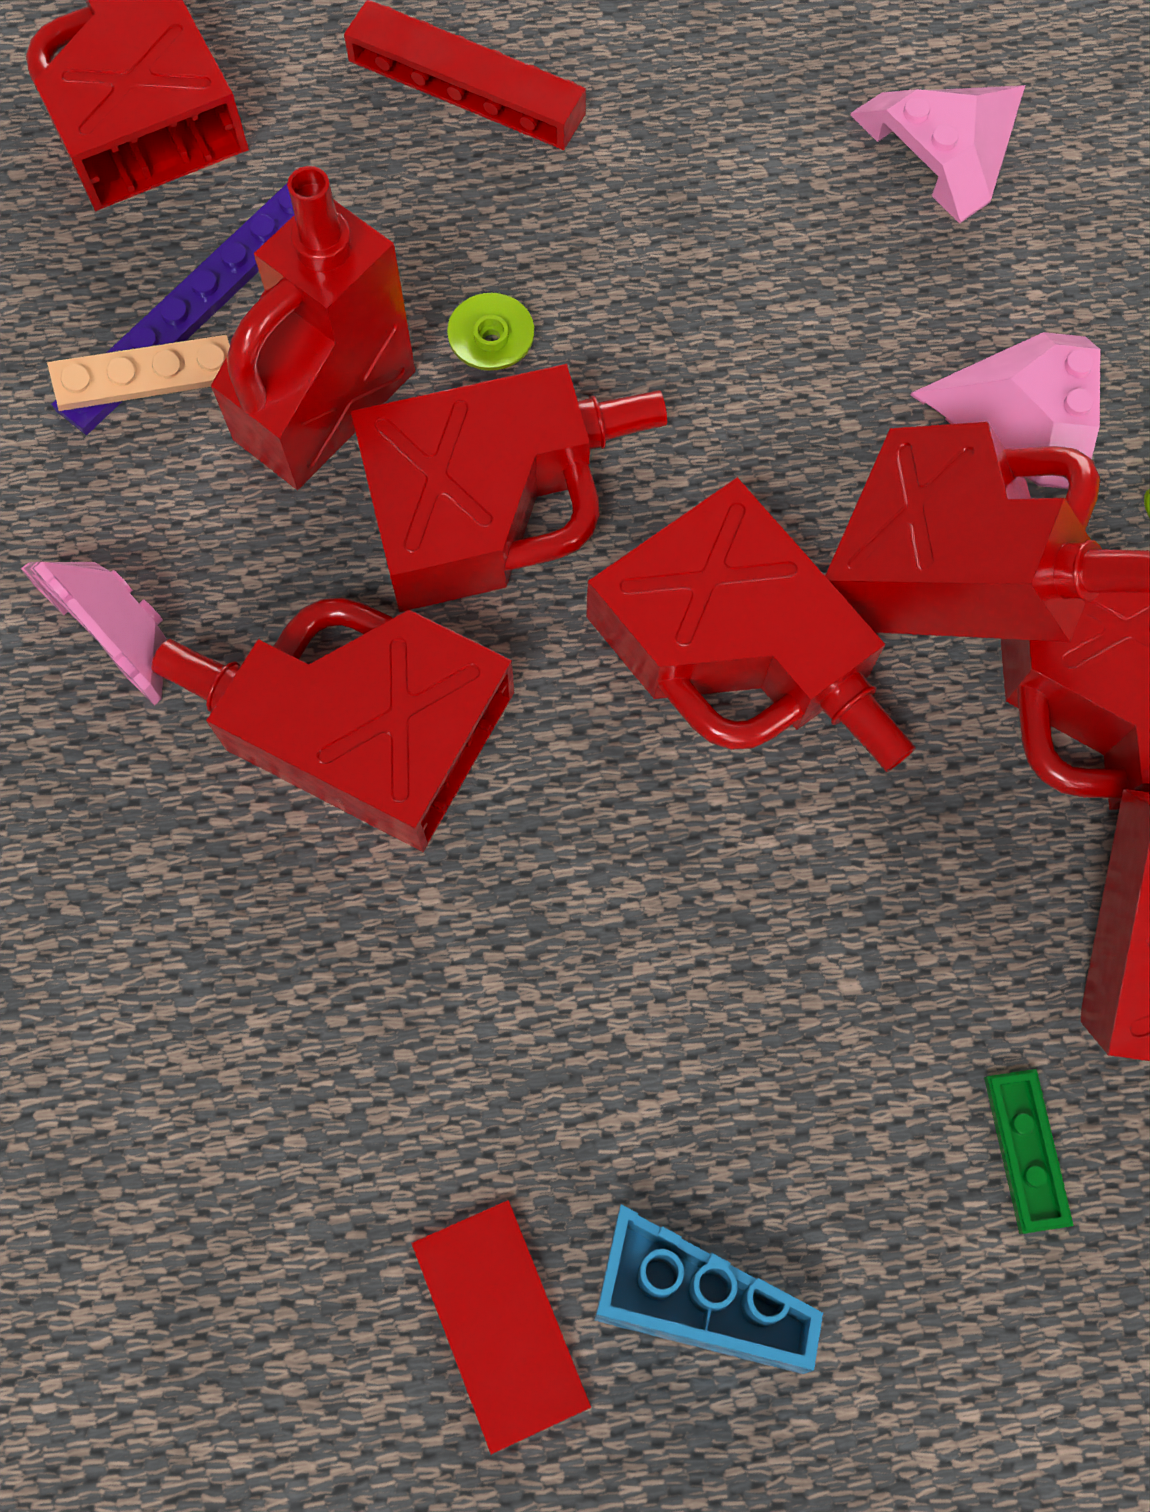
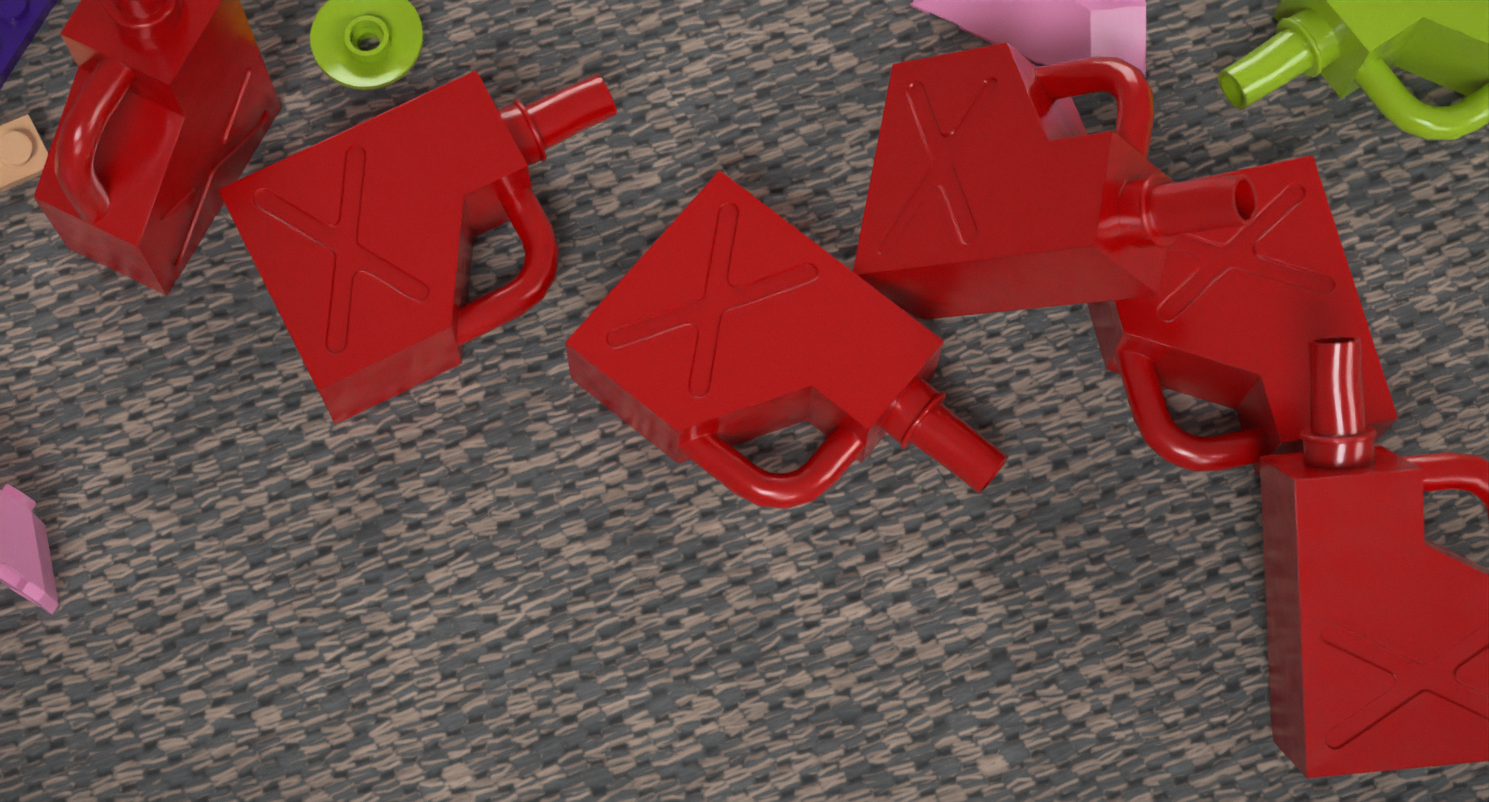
camera: 15 degrees left, 0 degrees up
(367, 728) = (332, 587): red piece -> none

